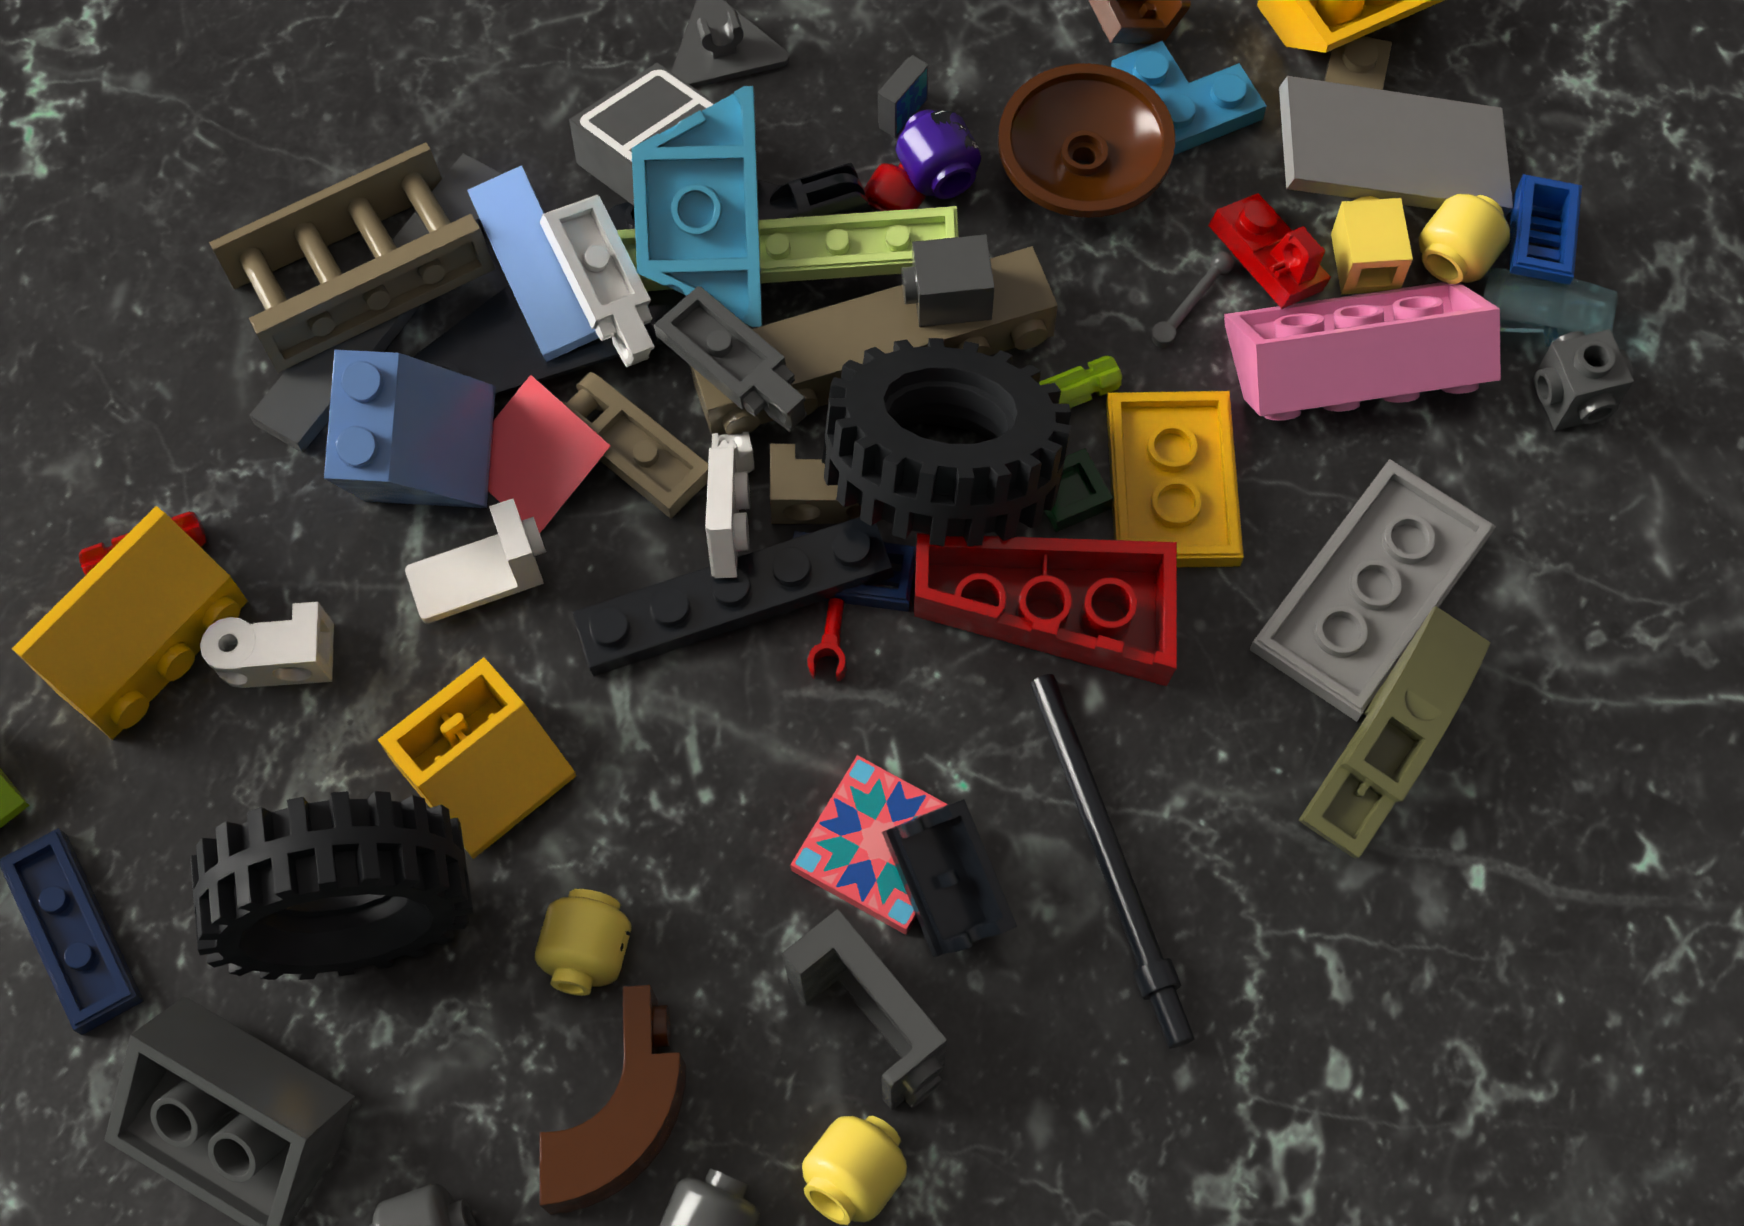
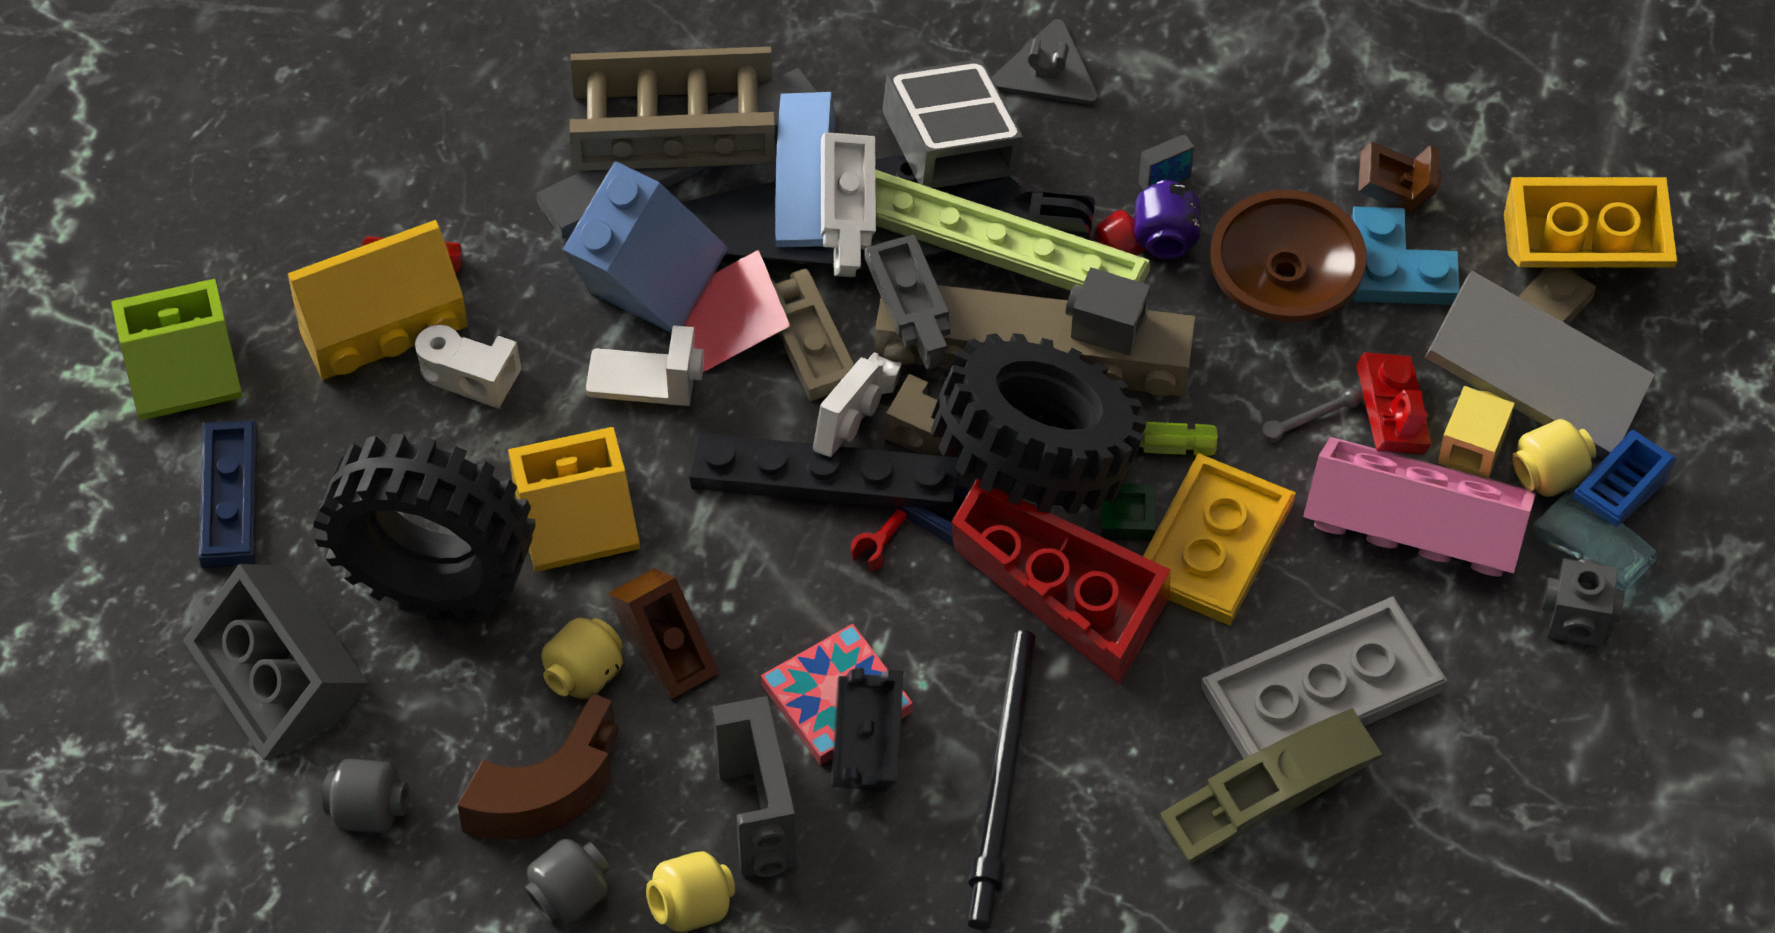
camera: 25 degrees right, 10 degrees down
(657, 864) = (663, 631): none -> reddish brown slope
(701, 206) = (947, 177): medium azure wing -> none

